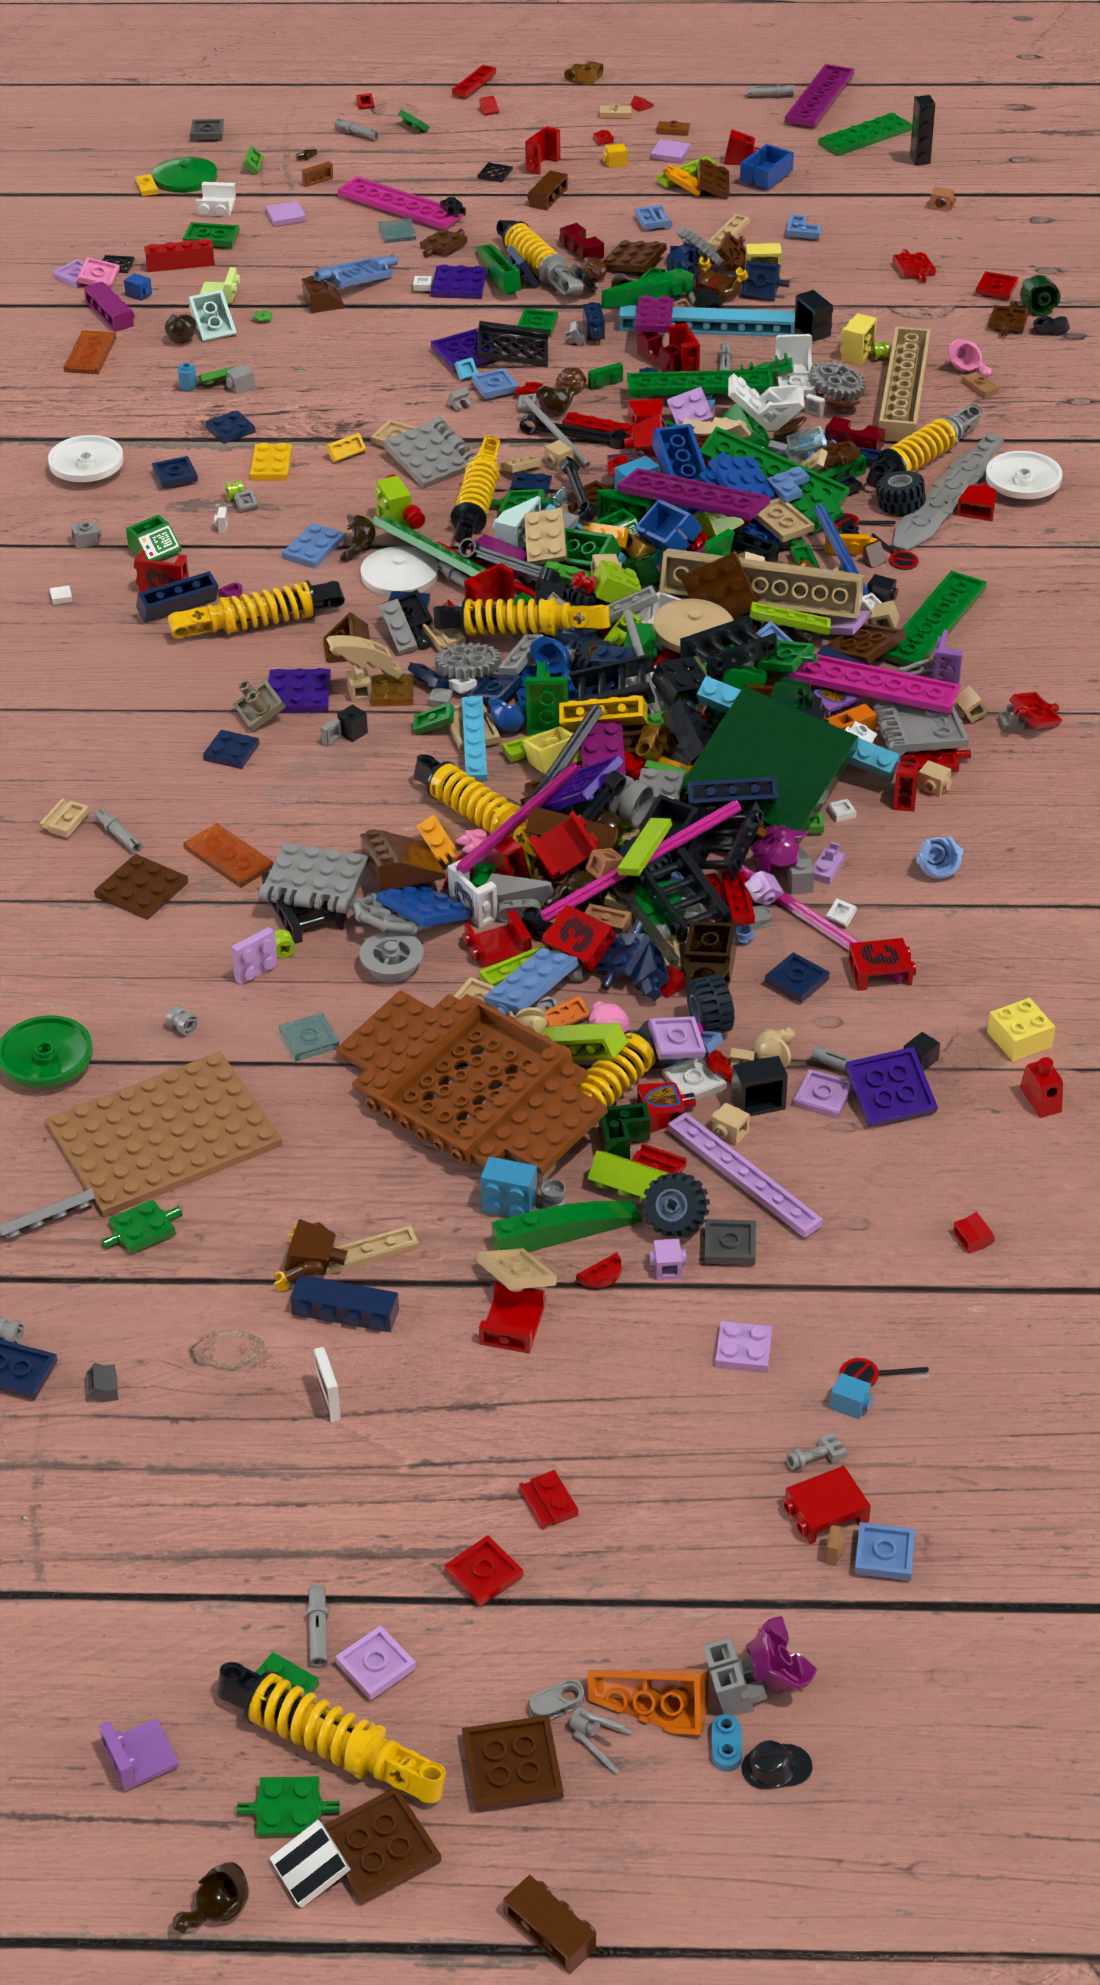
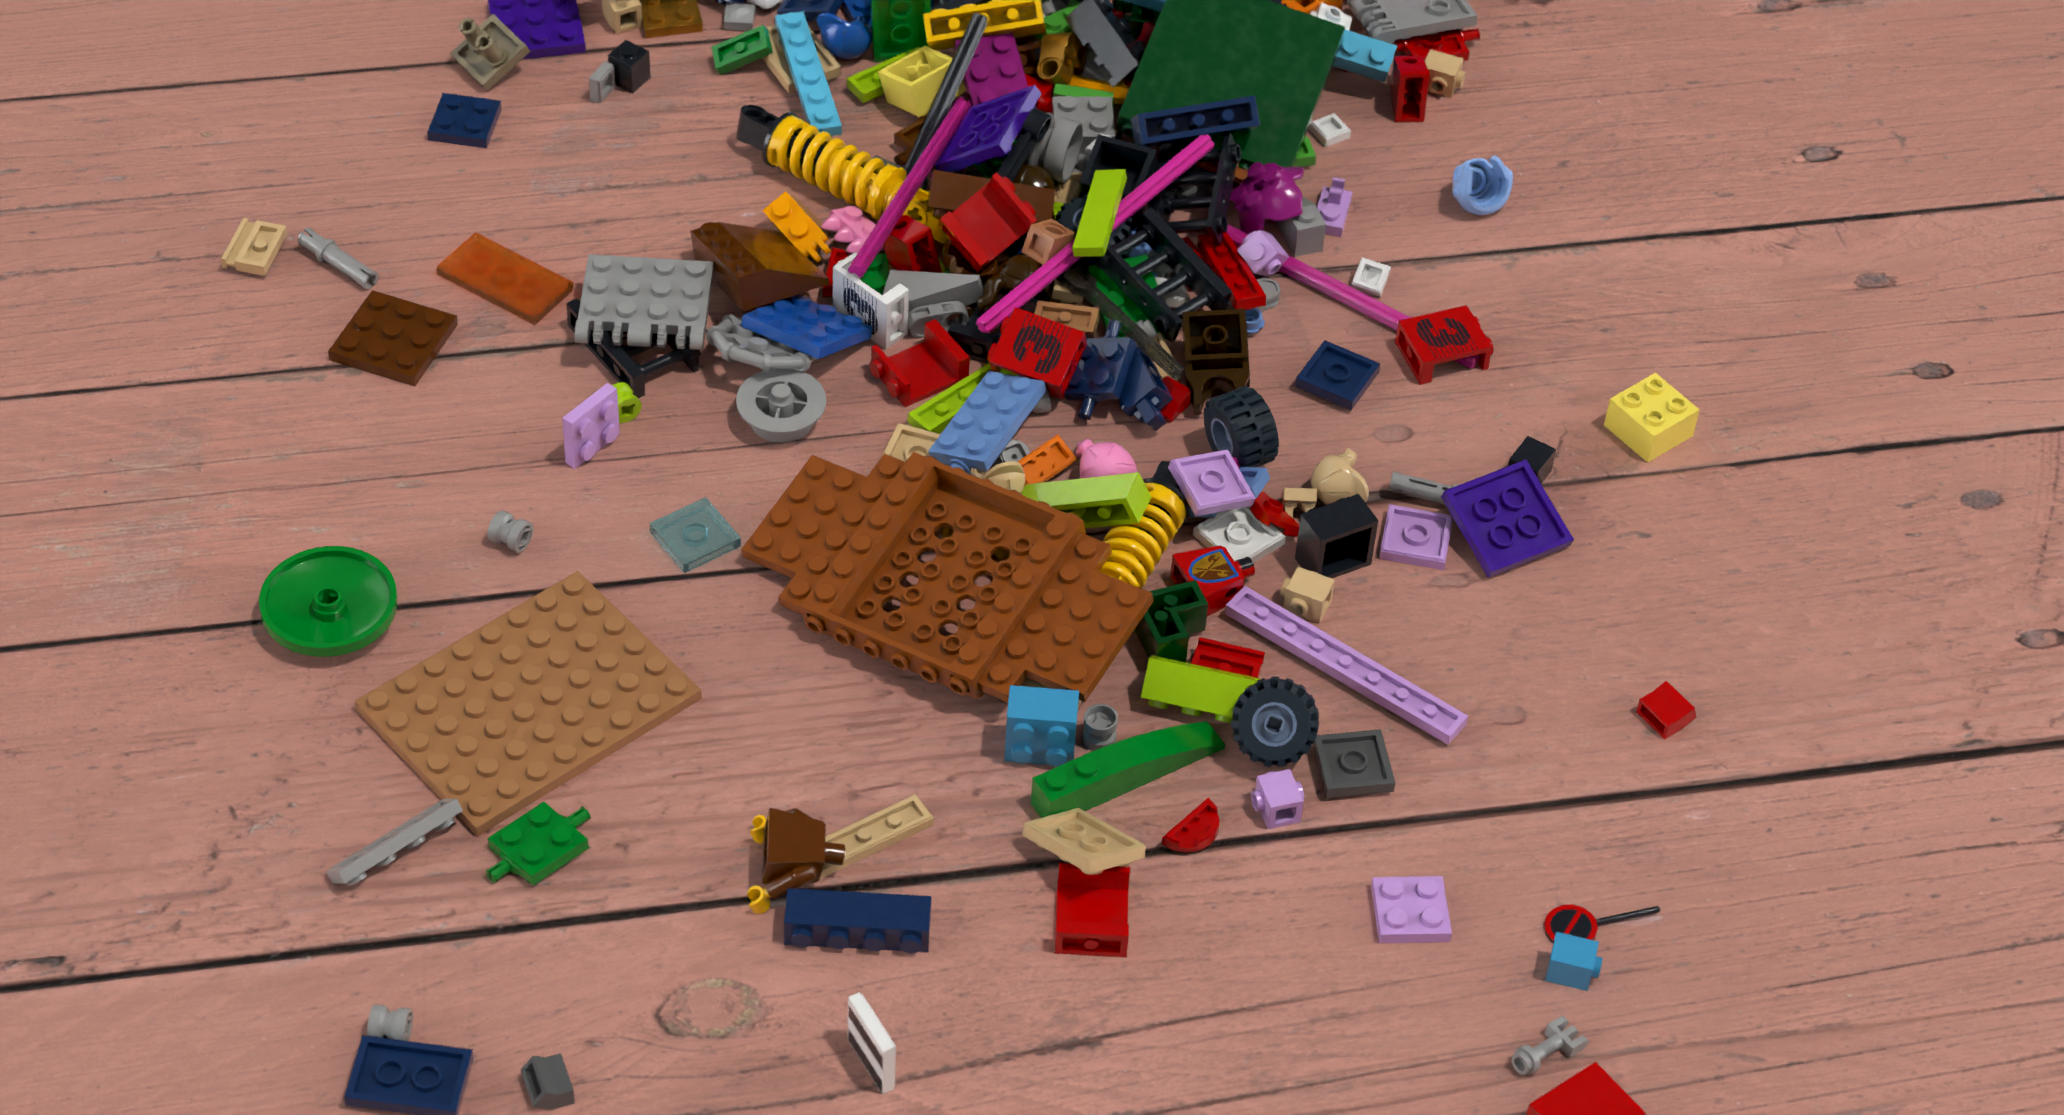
camera: 15 degrees left, 5 degrees up
(1043, 1087) = (1703, 495): red torso -> none

